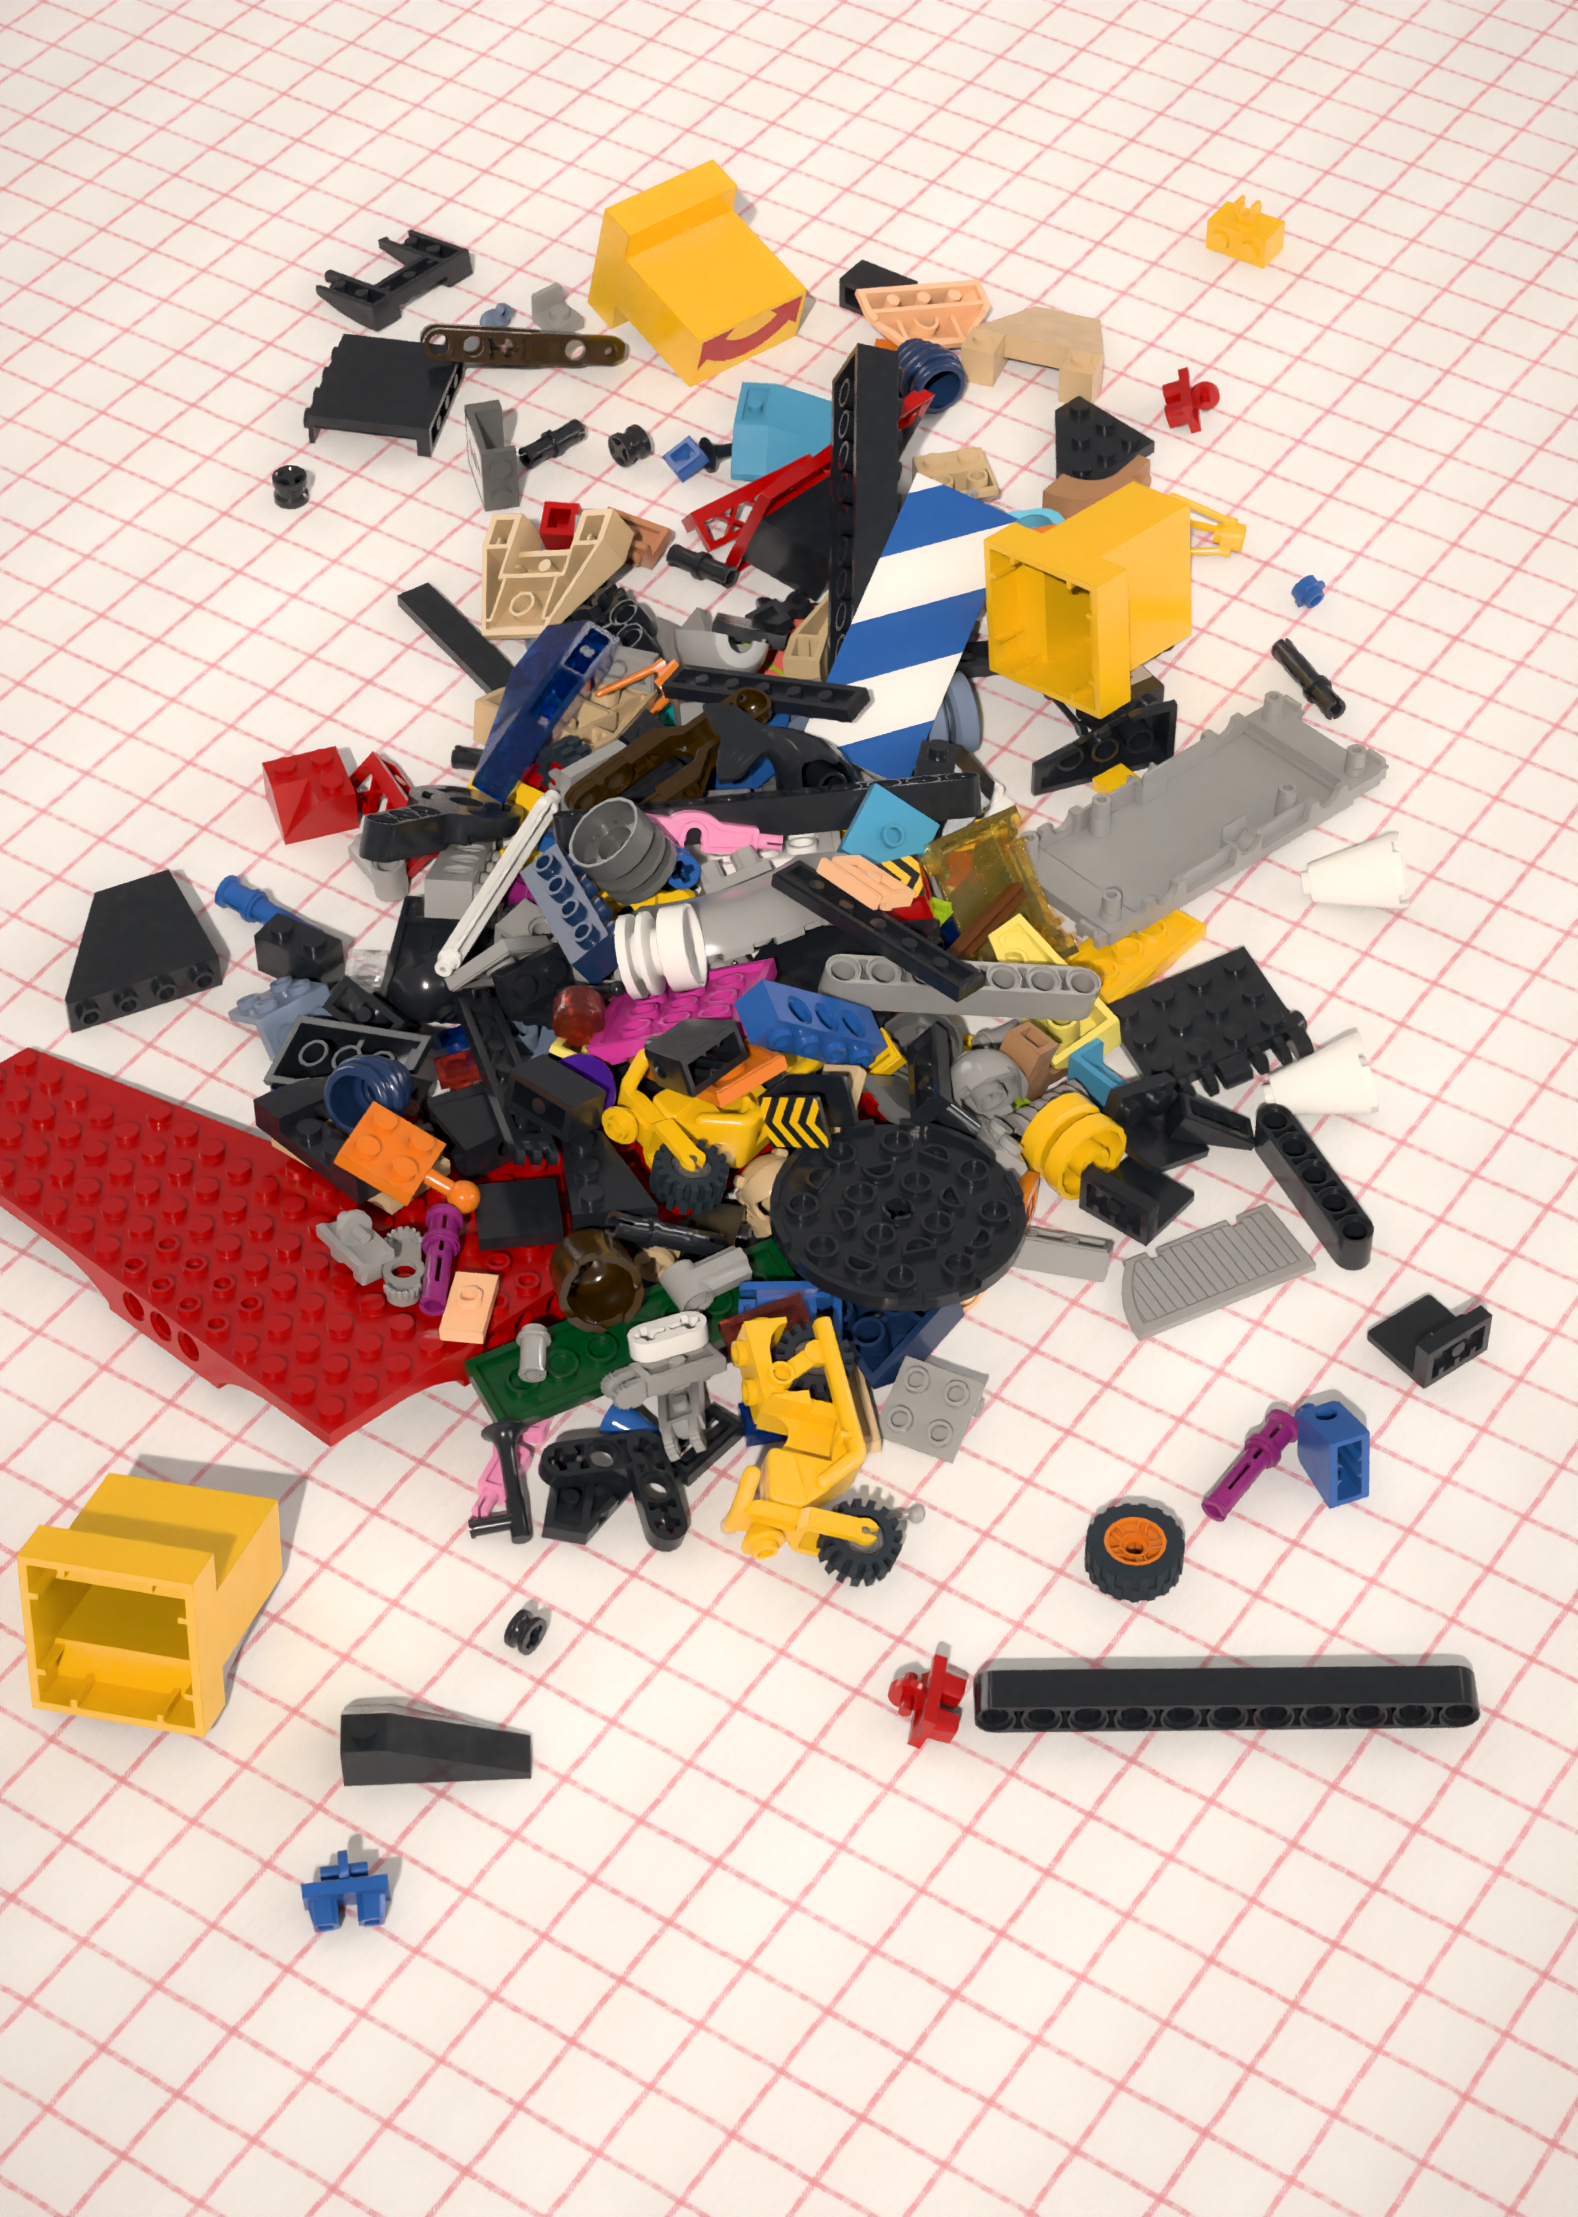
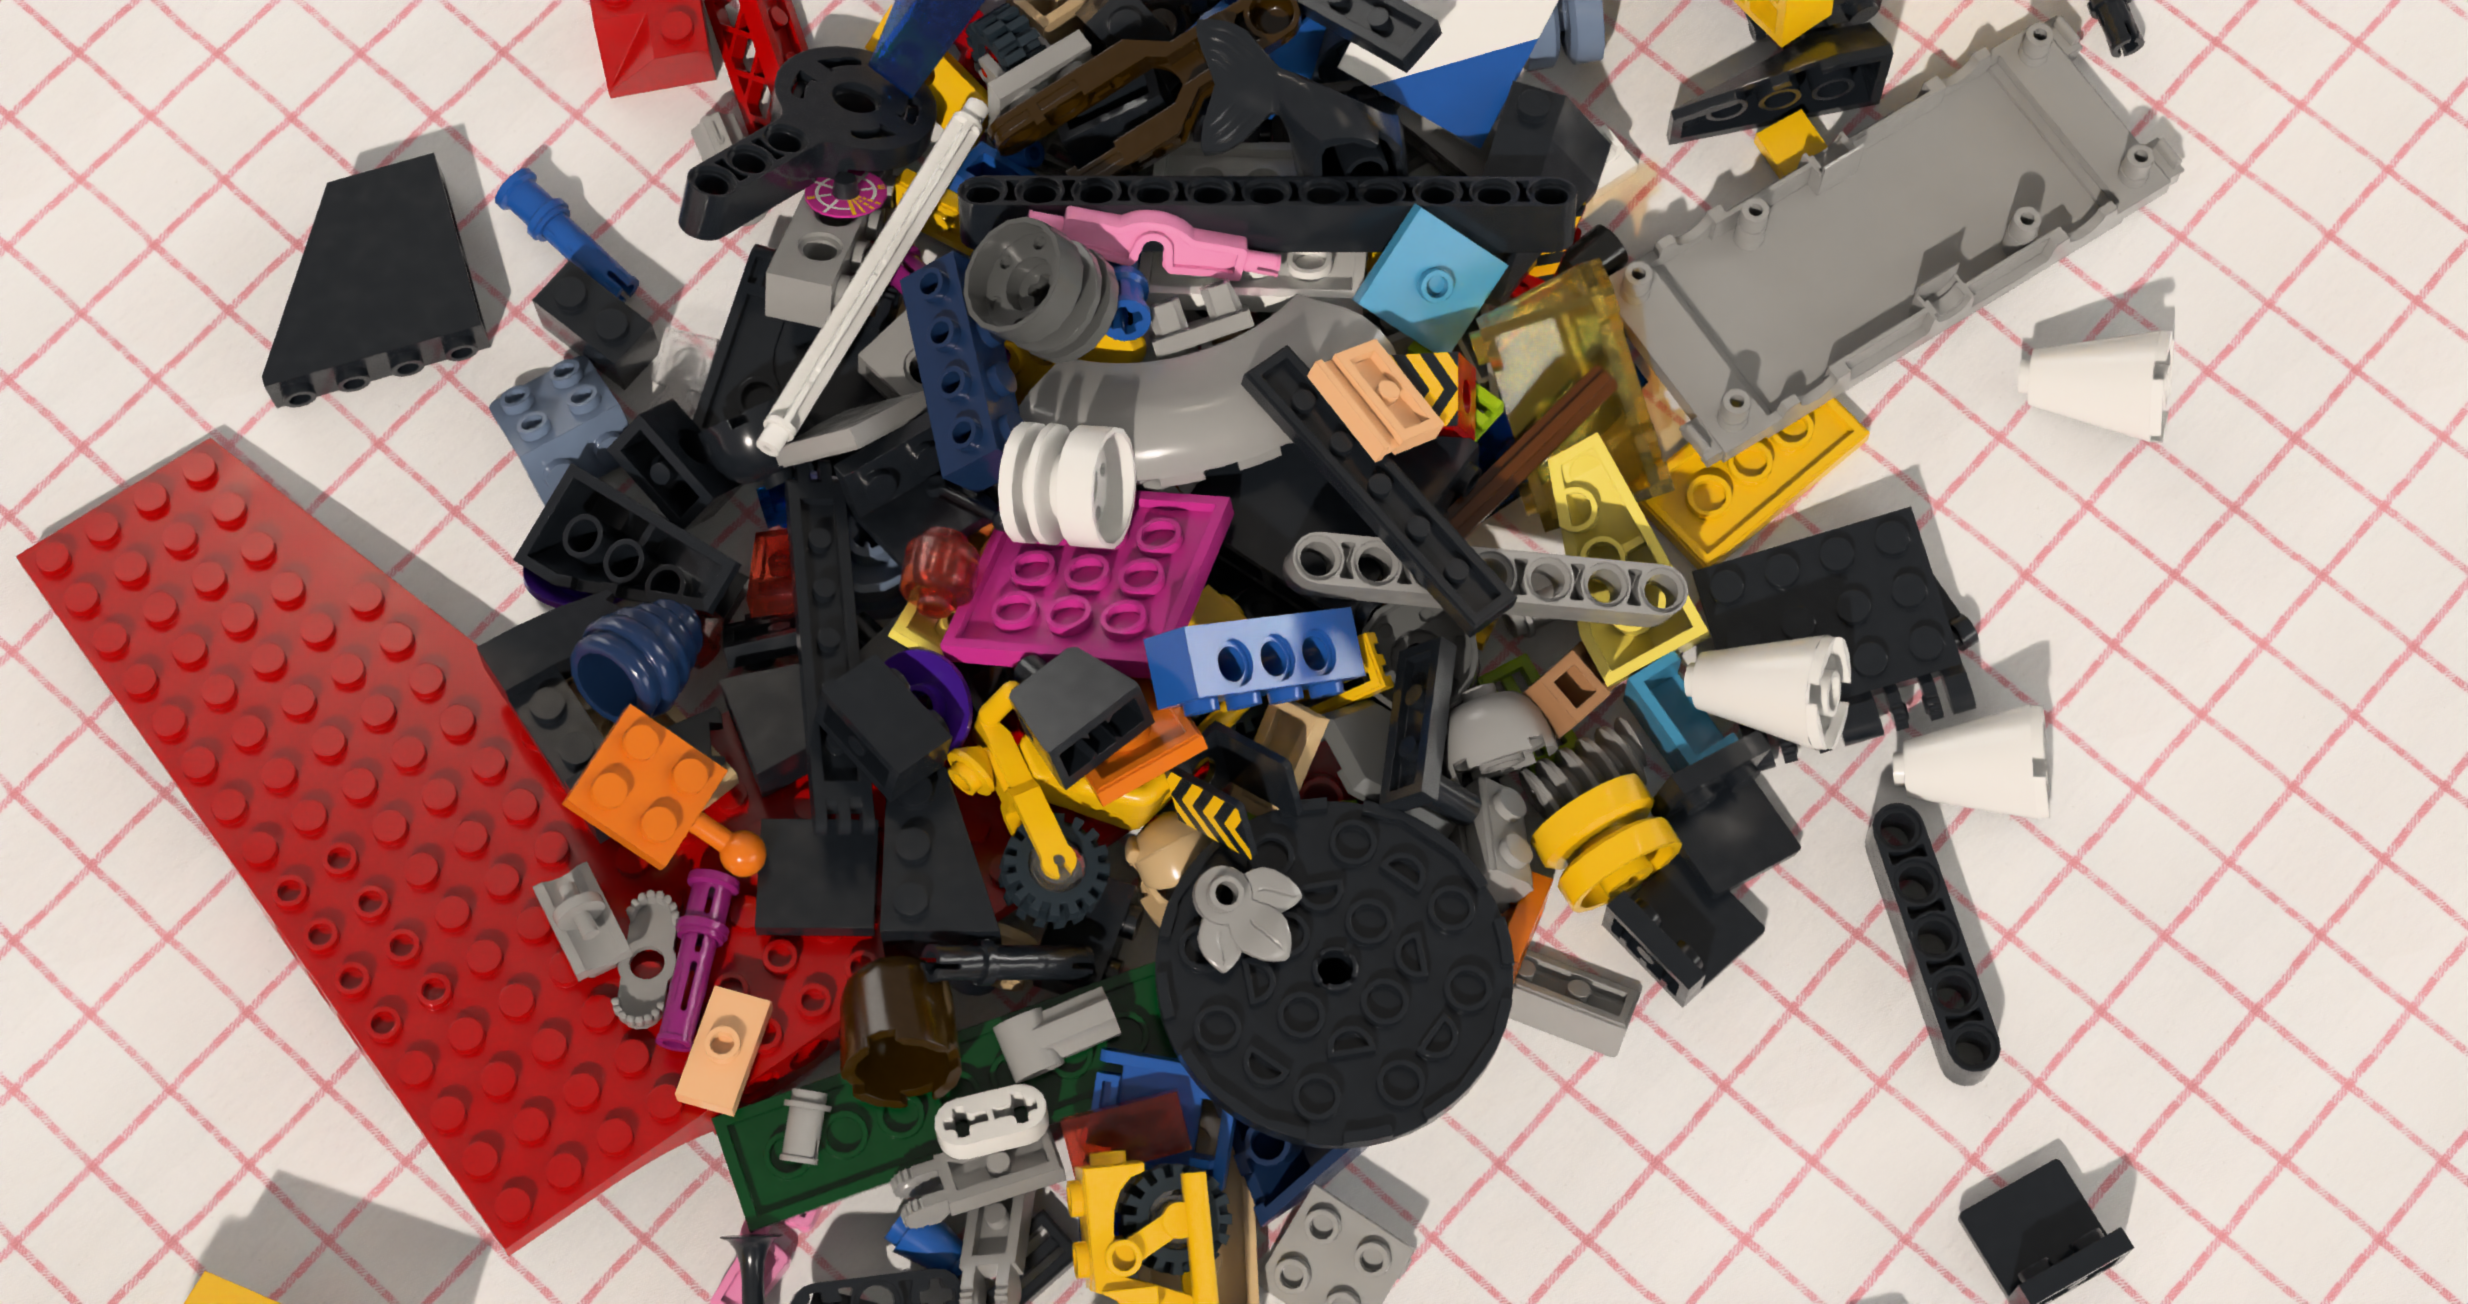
camera: 10 degrees right, 25 degrees up
(468, 849) = (847, 195): none -> piece
(828, 1177) = (1251, 921): none -> light grey plate
(1173, 1042) = (1777, 688): none -> white cone
(1207, 1124) = (1772, 810): black slope -> none
(1210, 1271) = (1763, 1061): light grey piece -> none

